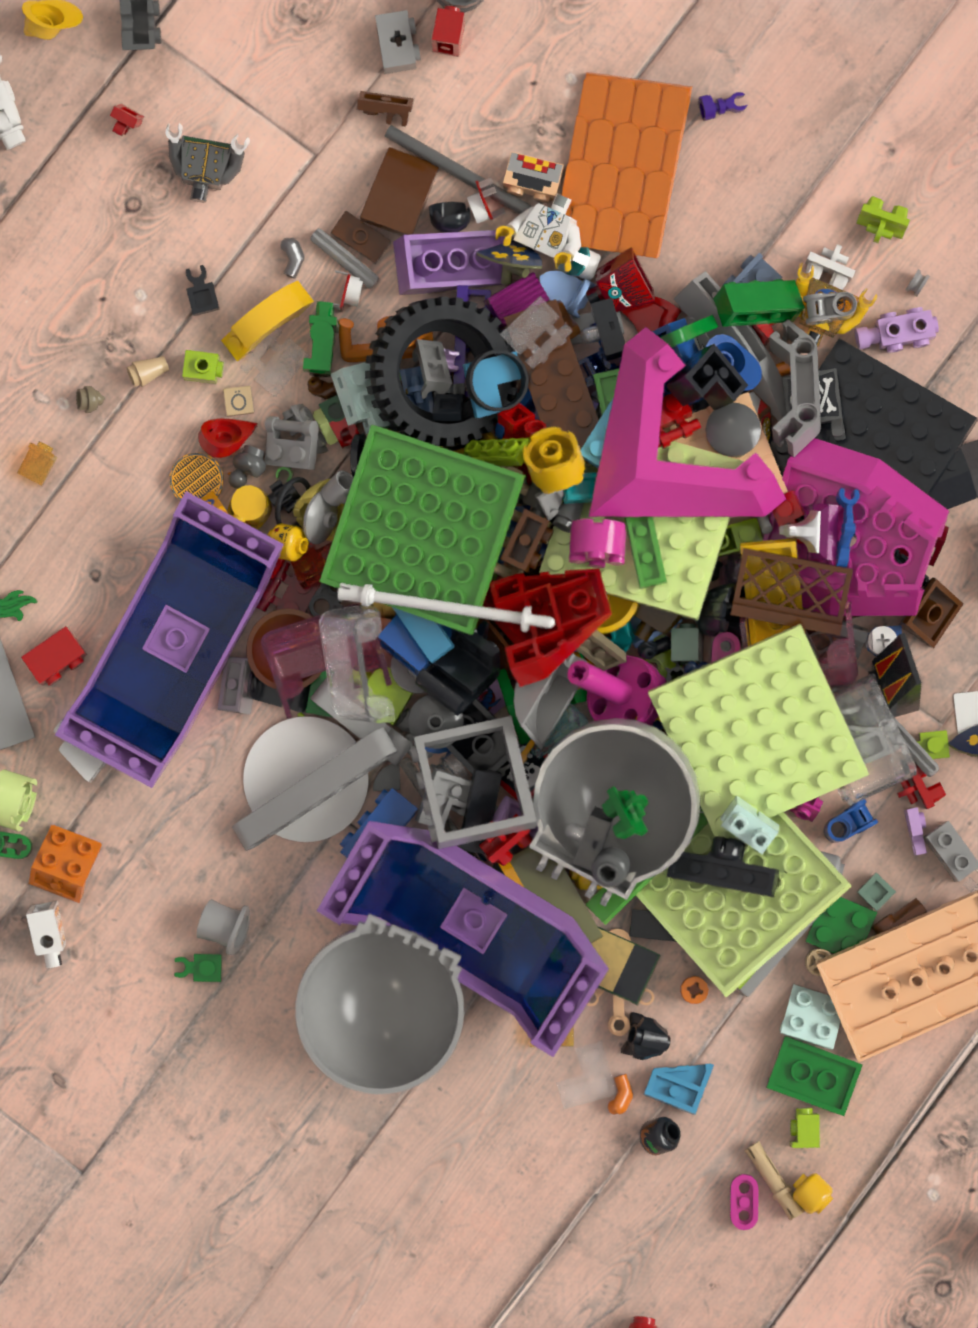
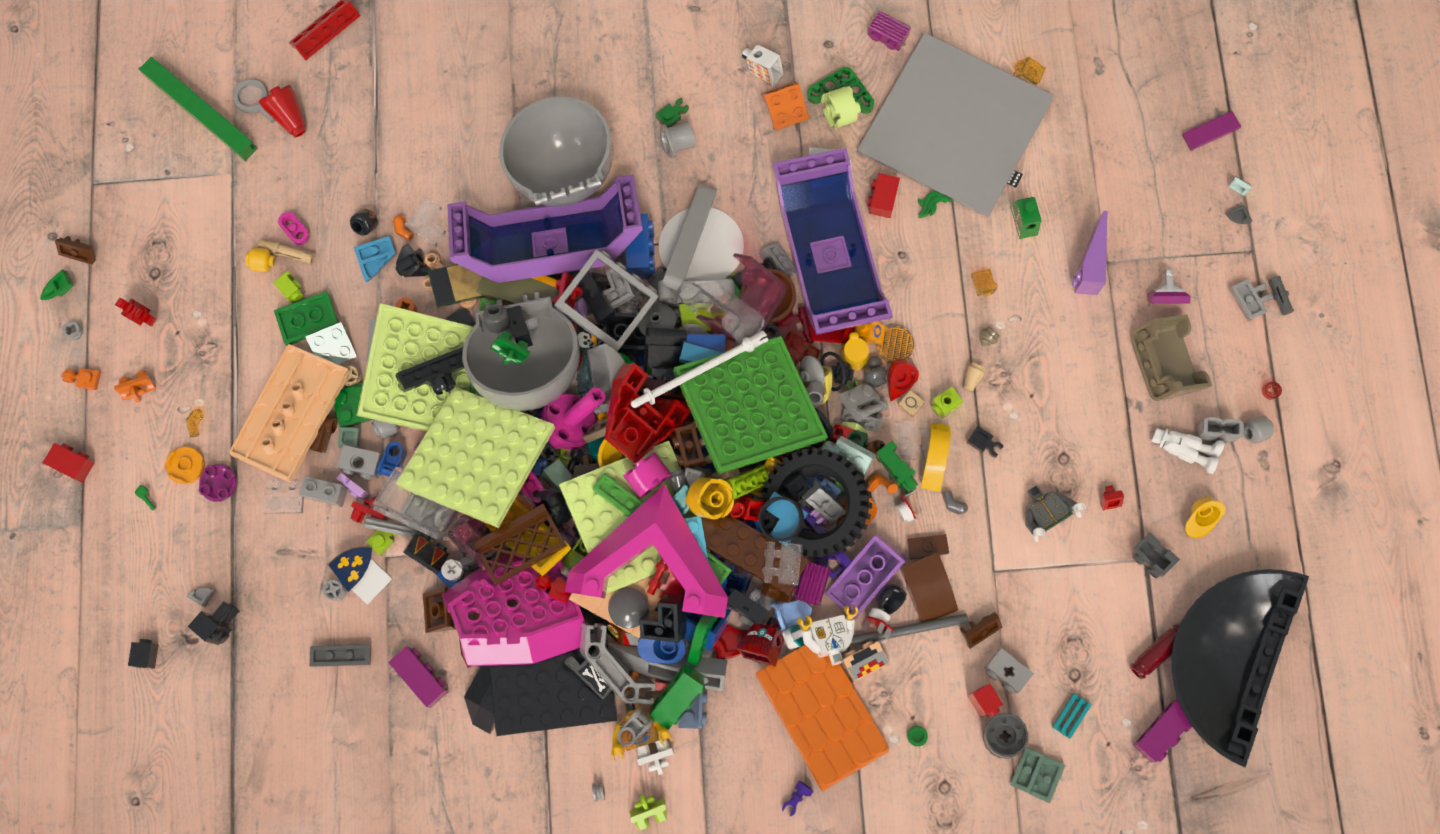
camera: 145 degrees right, 10 degrees down
(293, 539) = (817, 345): yellow head -> none
(344, 258) = (926, 527): light grey axle -> none
(514, 259) = (834, 602): shield -> none
(546, 60) = (917, 736): none -> green tile
(748, 825) = (439, 401): light aqua hips -> none
(817, 531) = (532, 588): piece -> none
(848, 527) = (514, 602): blue piece -> none
(871, 843) = (351, 455): none -> light grey brick
(907, 331) = (582, 758): lavender brick -> none

